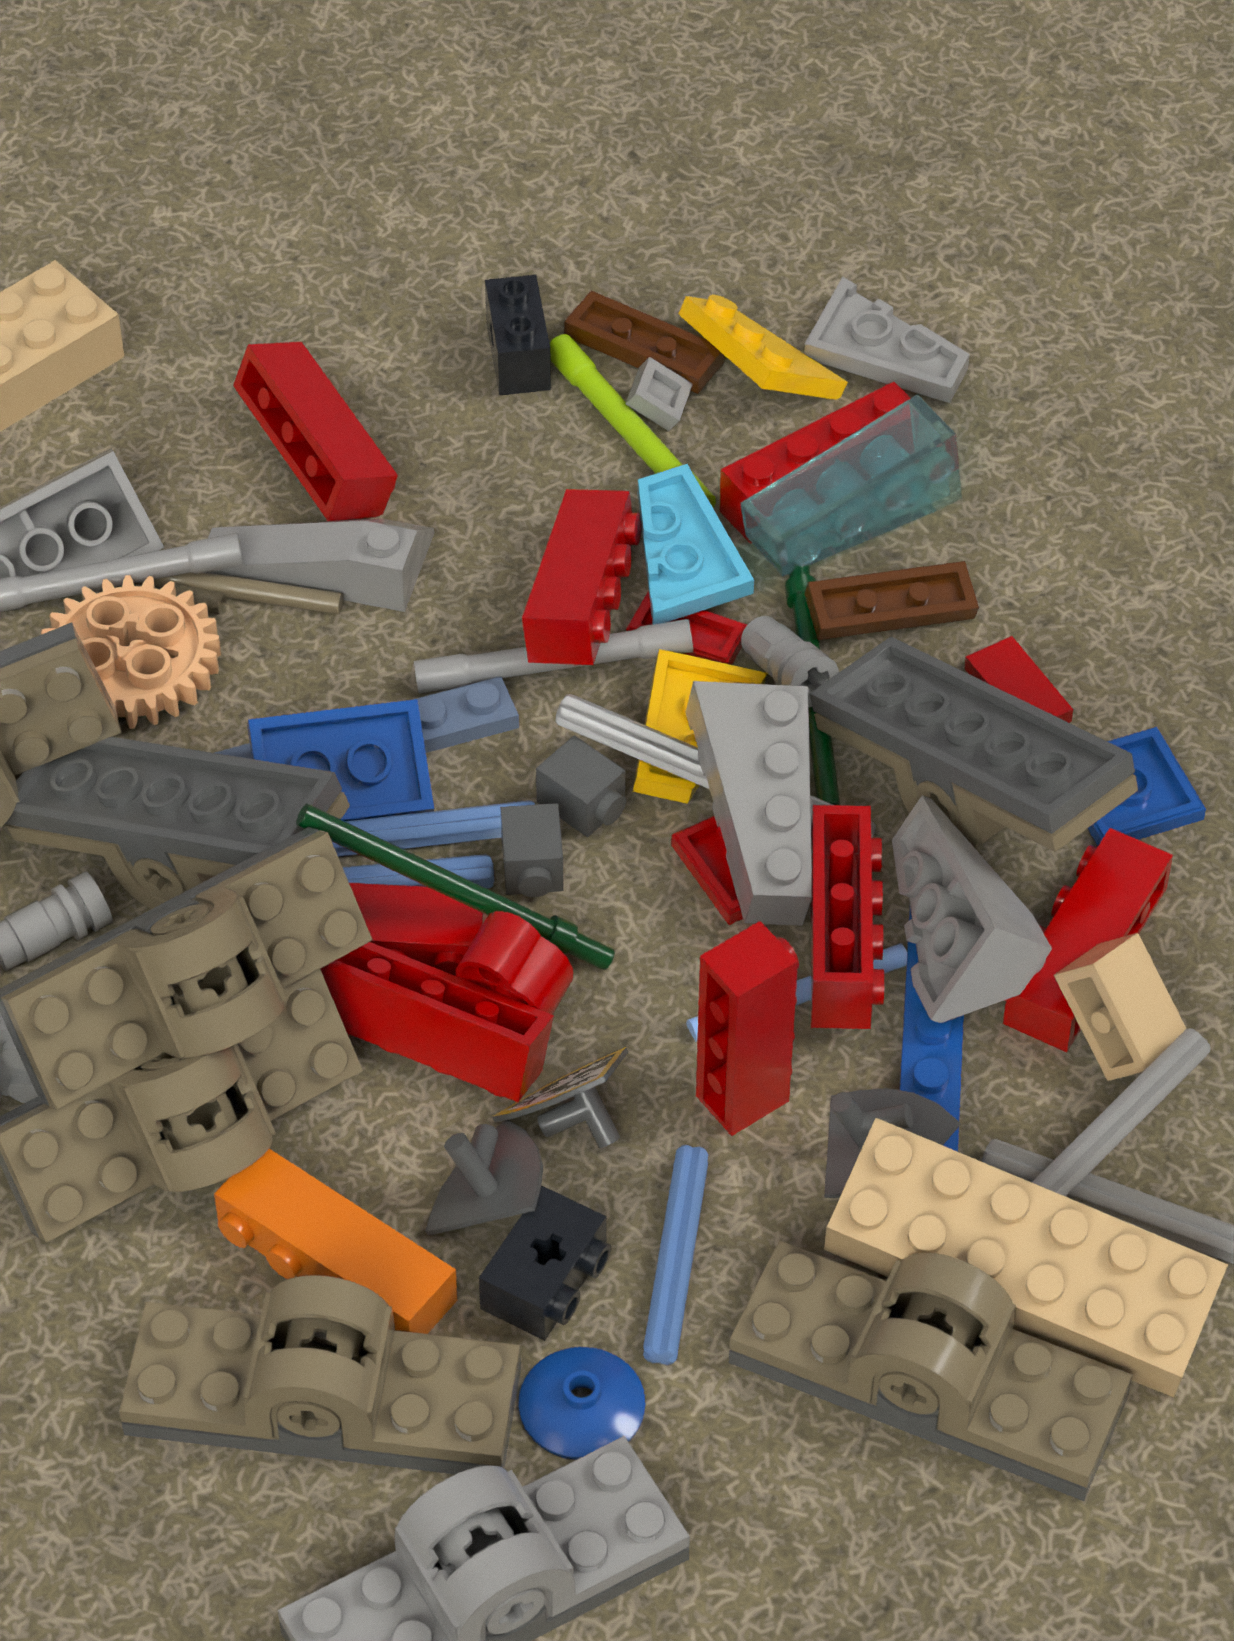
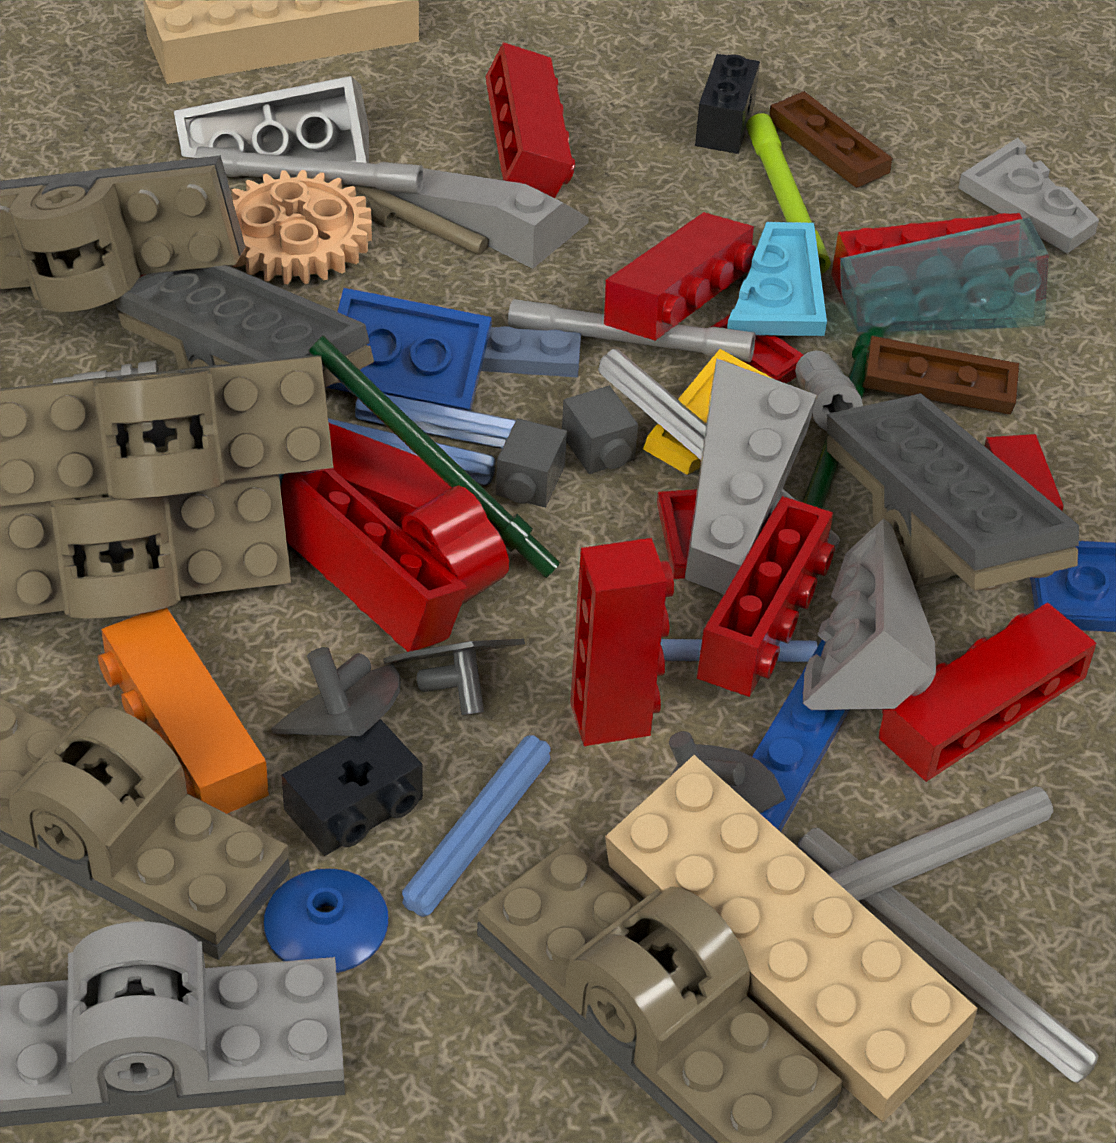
camera: 20 degrees right, 5 degrees down
(659, 394) = (821, 175): light grey plate -> none
(759, 352) = (920, 169): yellow wing -> none
(1121, 1005) = (985, 747): tan brick -> none

